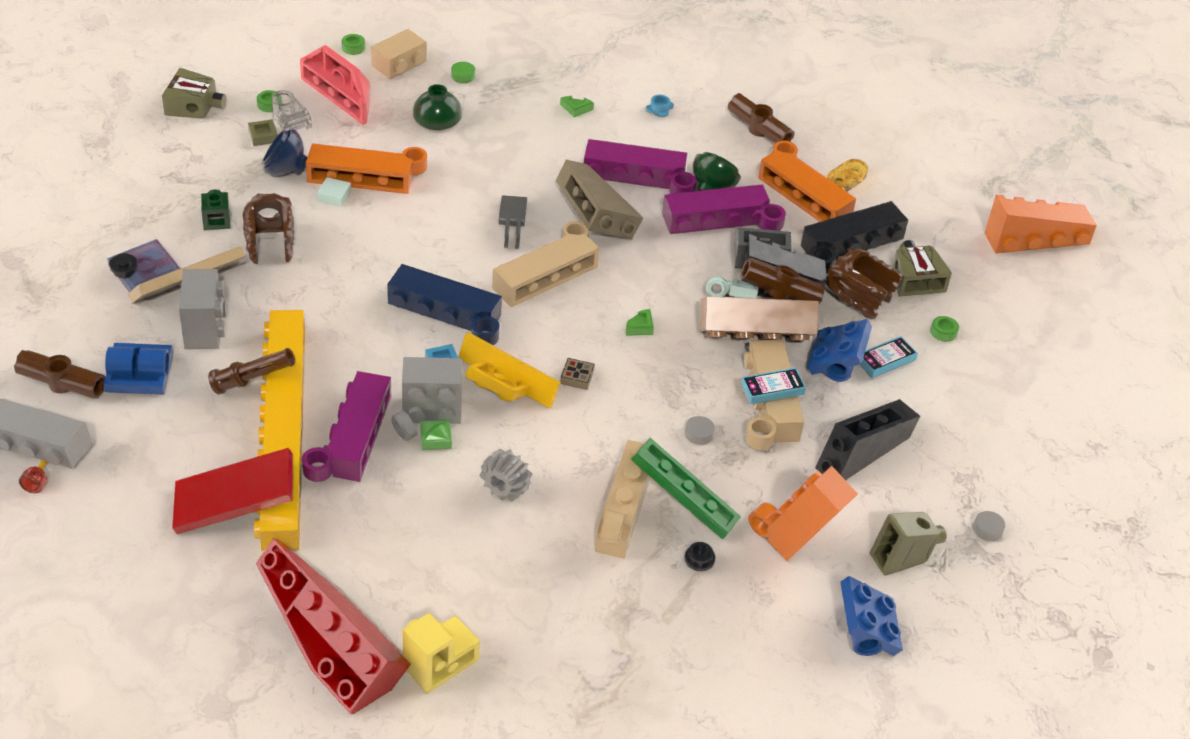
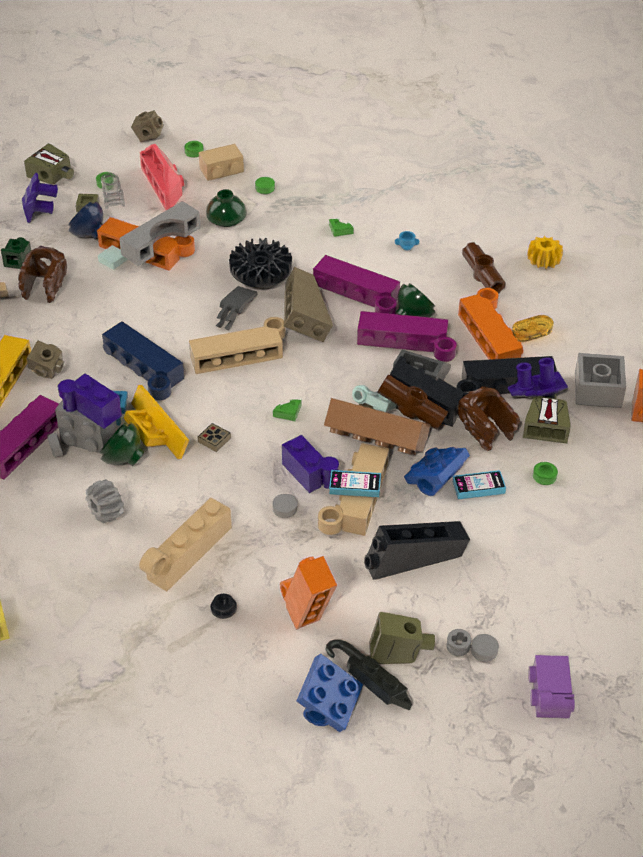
camera: 25 degrees right, 0 degrees up
(199, 140) = (29, 200): none -> dark purple connector
(287, 25) = (147, 126): none -> dark tan brick
(335, 329) = (45, 359): none -> dark tan brick
(402, 132) = (176, 221): none -> light grey arch
(435, 435) = (77, 458): bright green tile -> none
(448, 360) = (90, 399): none -> dark purple hinge
(487, 407) = (123, 446): none -> dark green piece
(518, 164) = (260, 263): none -> black wheel
(686, 488) = (237, 548): green tile -> none
(704, 378) = (307, 464): none -> dark purple hinge
(814, 90) = (545, 252): none -> yellow gear
(896, 234) = (544, 384): none -> dark purple connector
(897, 585) = (372, 675): none -> pearl dark grey plate
(950, 216) = (600, 380): none -> light grey brick
(965, 521) = (458, 650): none -> light grey bush
(1080, 546) = (552, 687): none -> medium lavender hinge

